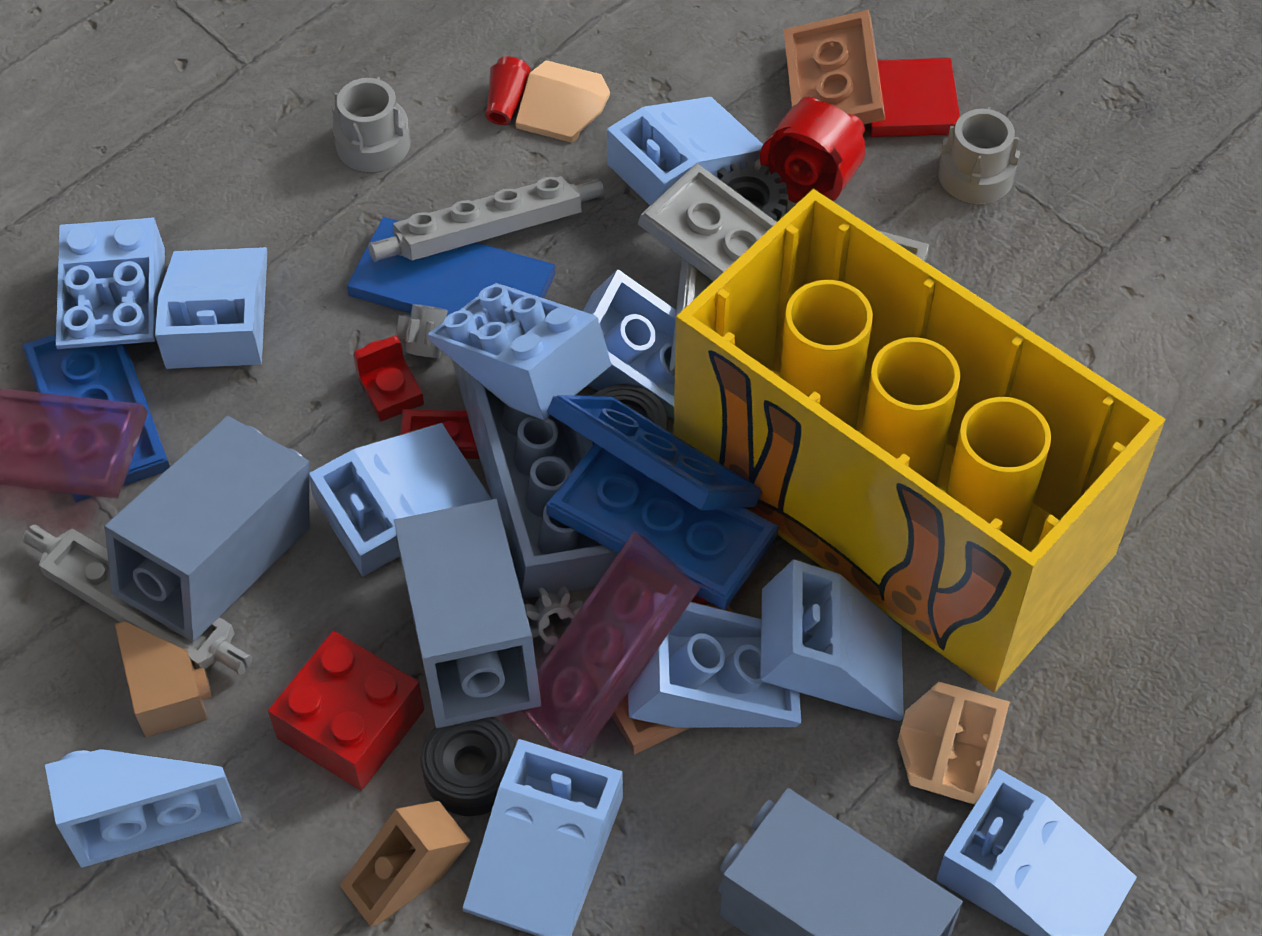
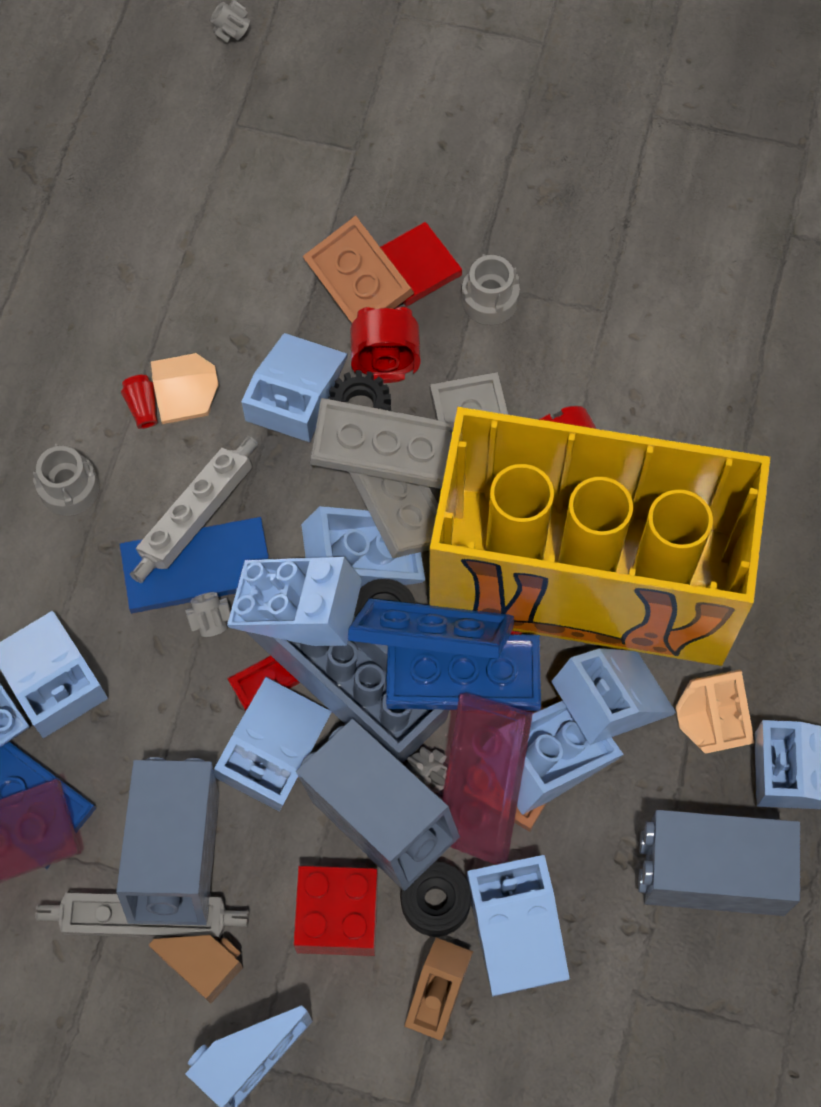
camera: 30 degrees left, 10 degrees up
(387, 378) = (203, 663): red bracket -> none

